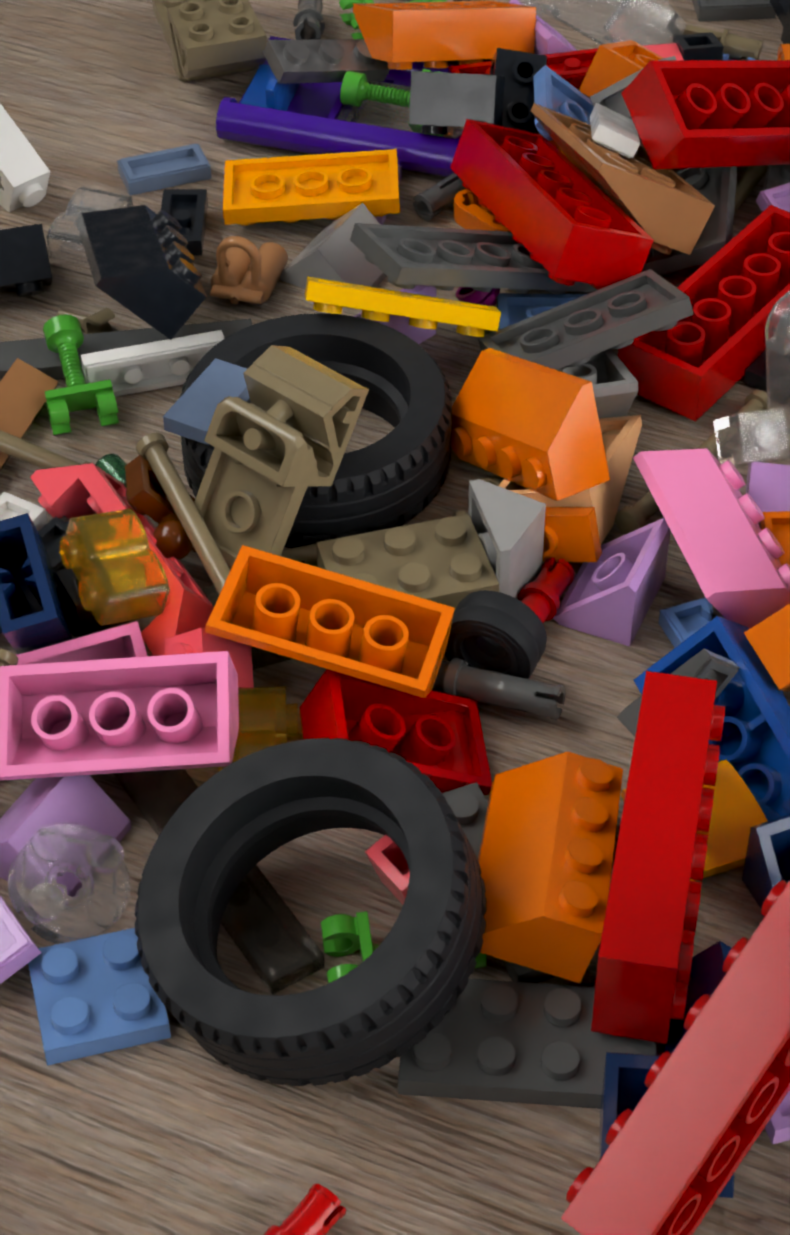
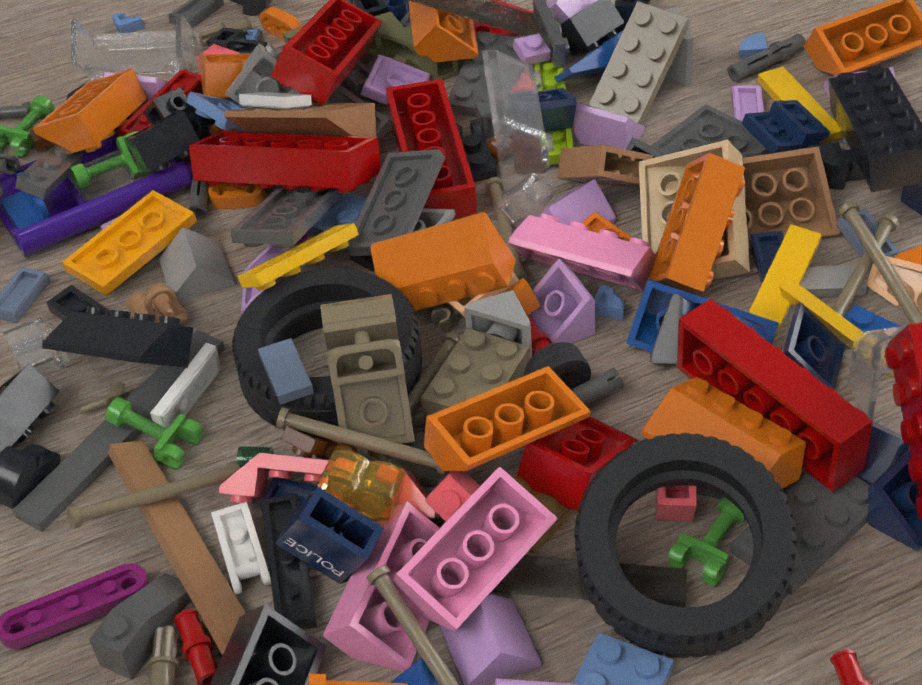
camera: 45 degrees left, 0 degrees up
(45, 903) = (564, 646): clear plate -> none

